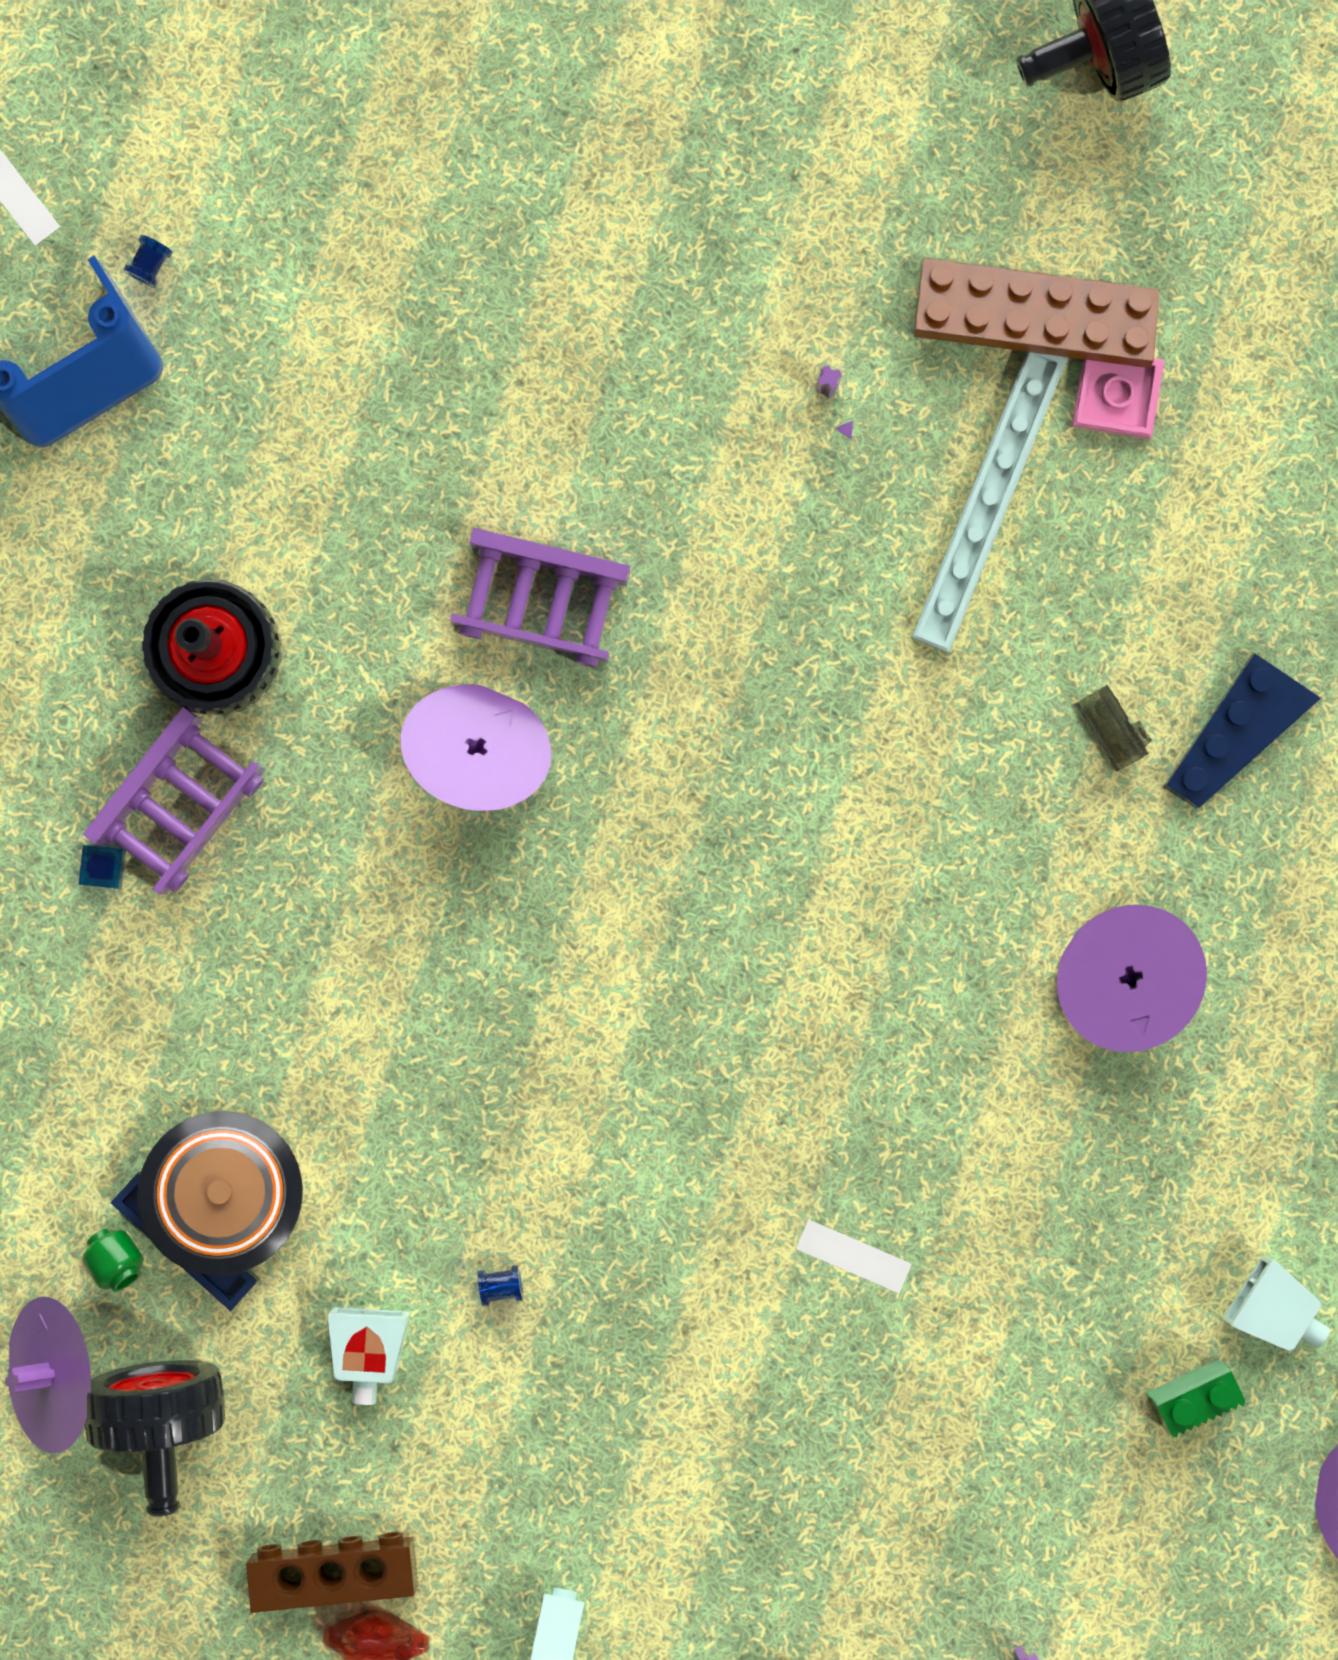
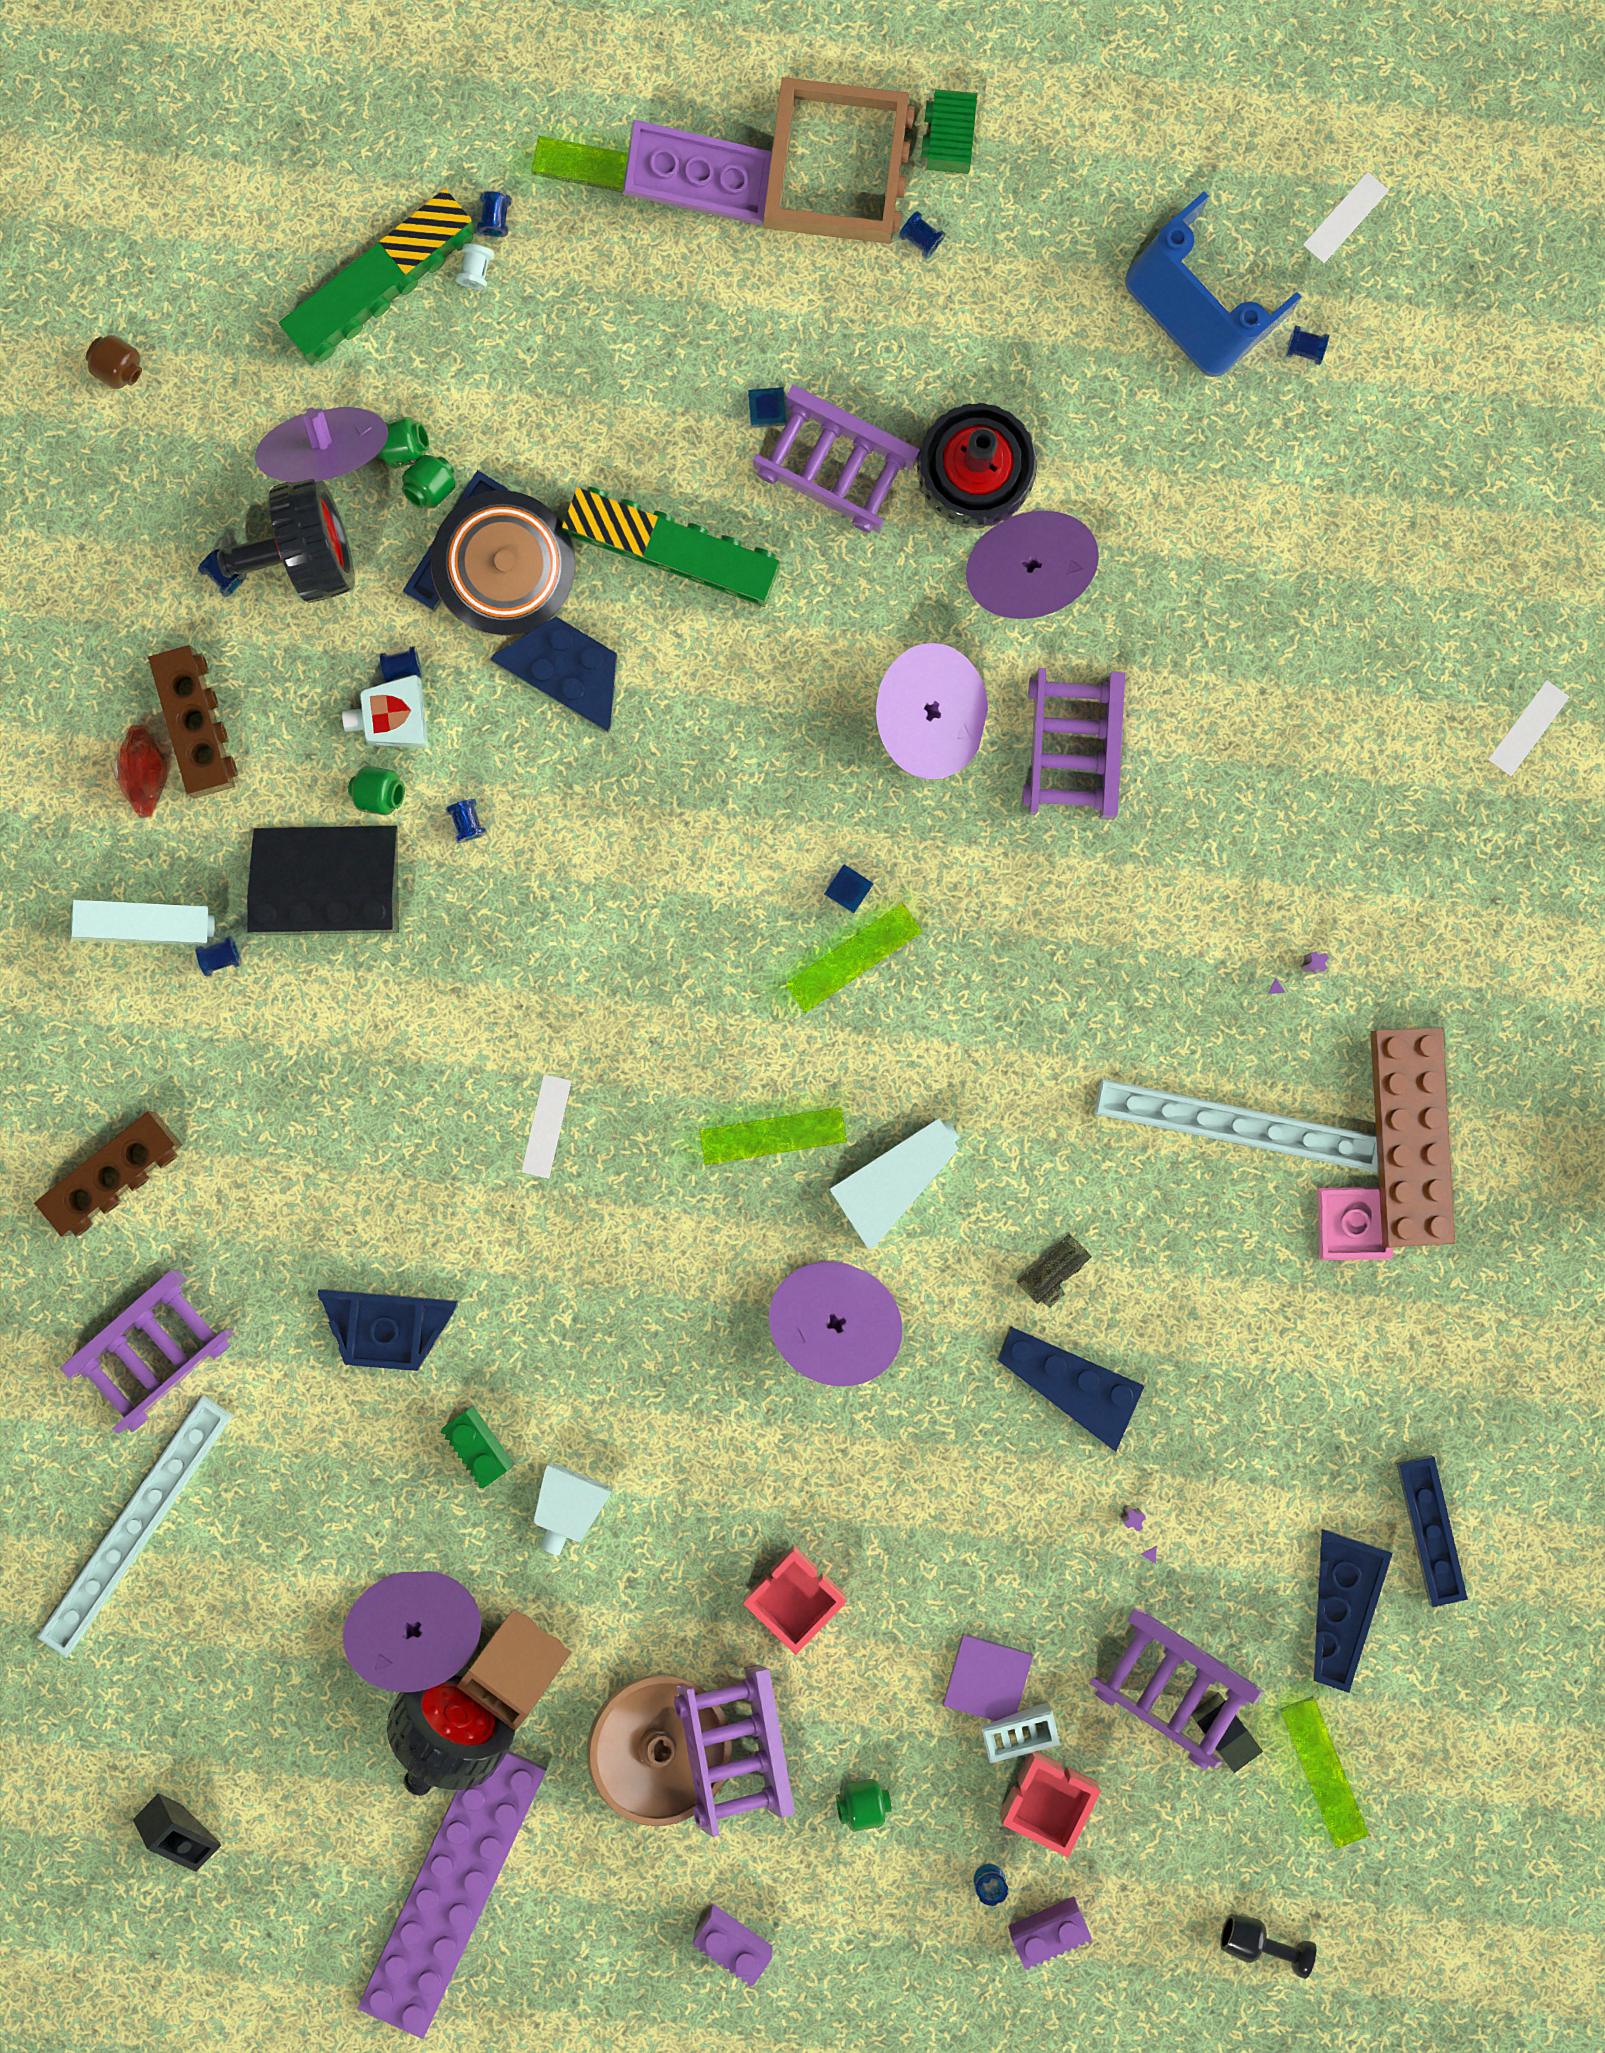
camera: 80 degrees right, 0 degrees up
(63, 1279) = (404, 442): none -> green head
(188, 1507) = (211, 568): none -> clear blue bush
(237, 1001) = (671, 546): none -> green brick
(312, 1327) = (401, 664): none -> clear blue bush
(350, 1143) = (565, 668): none -> dark blue wing
(355, 624) = (1056, 561): none -> medium lavender piece
(448, 1379) = (376, 790): none -> green head
(537, 1457) = (323, 881): none -> black slope
(600, 1590) = (218, 956): none -> clear blue bush
(613, 103) = (1529, 728): none -> white sticker
(654, 875) = (848, 889): none -> clear blue plate
(731, 883) = (853, 958): none -> clear neon green plate
(910, 1008) = (773, 1136): none -> clear neon green plate
(986, 889) = (891, 1183): none -> light aqua slope
(1045, 1476) = (385, 1327): none -> dark blue wing

